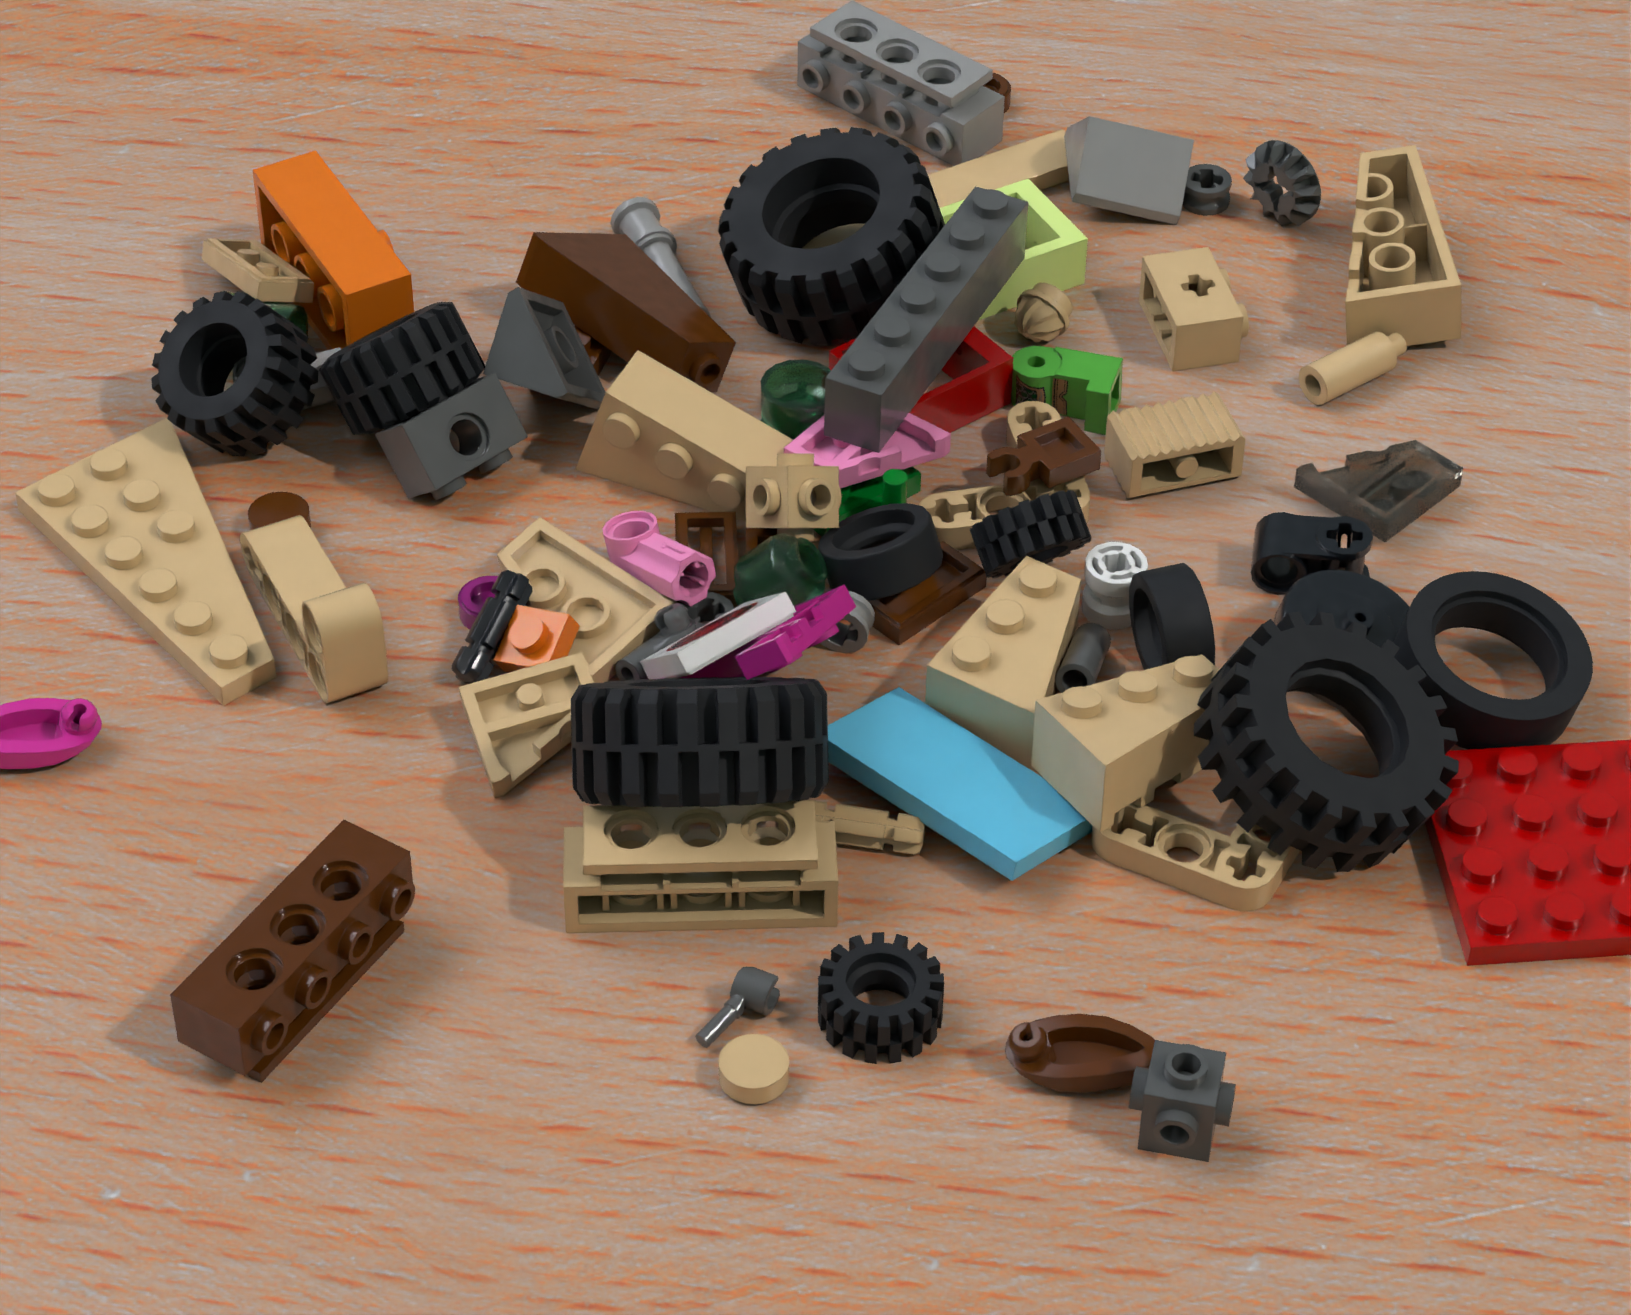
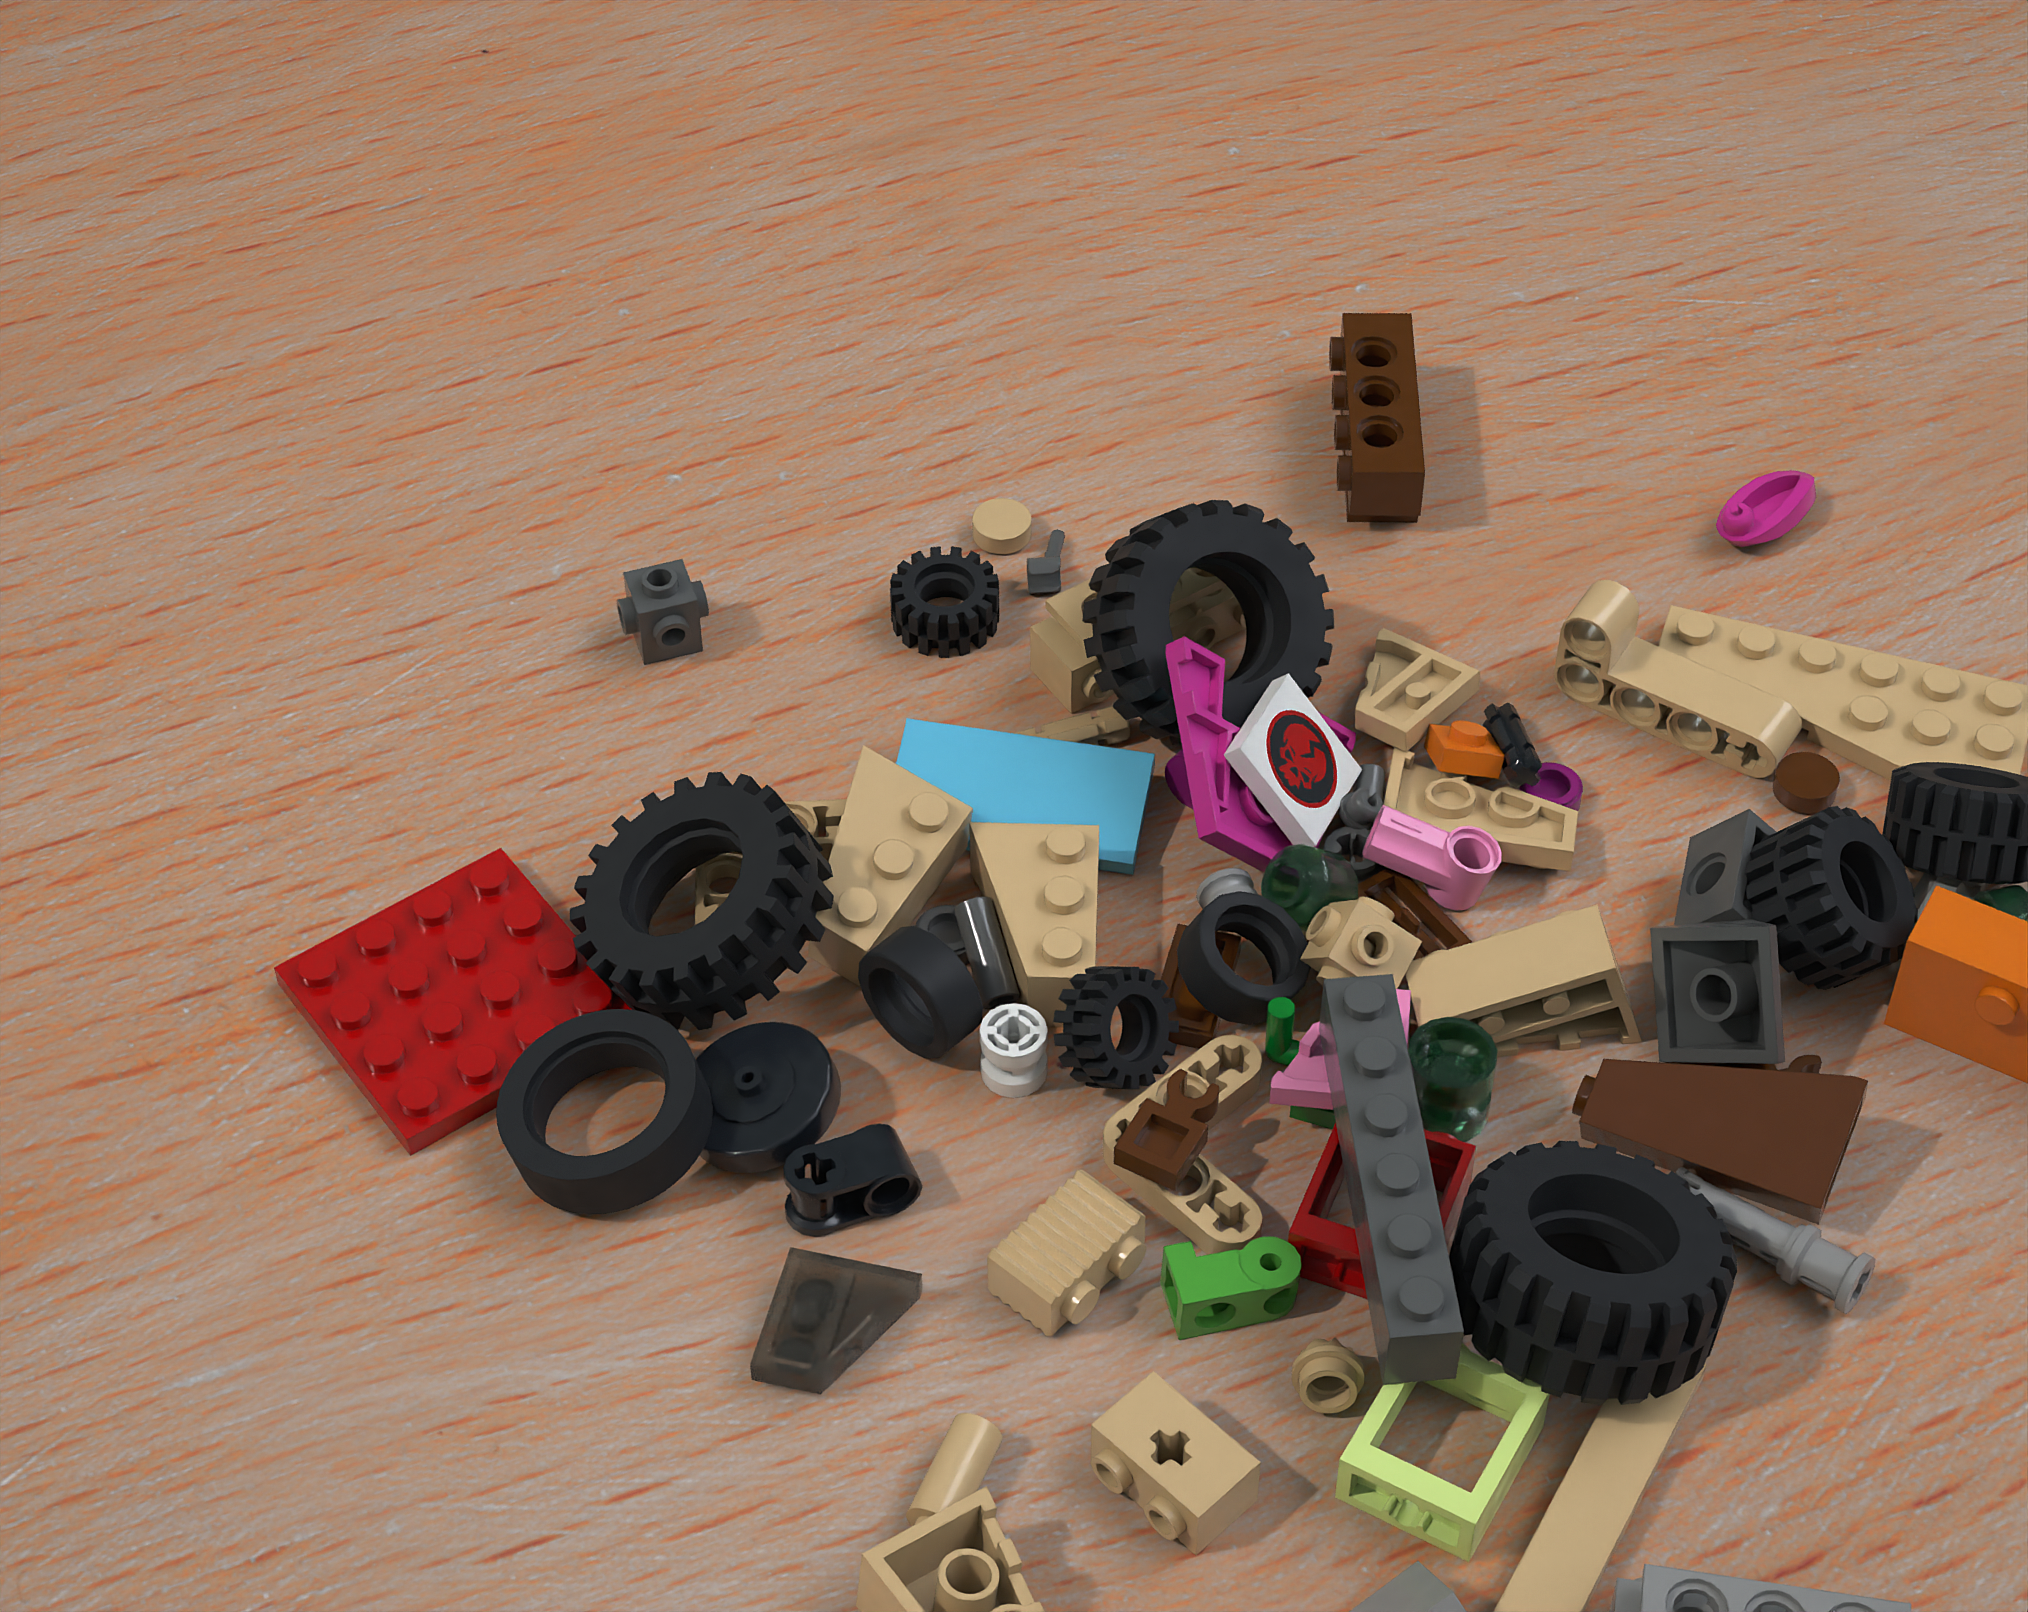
camera: 150 degrees right, 5 degrees up
(1078, 1052) = (763, 631): reddish brown arm -> none

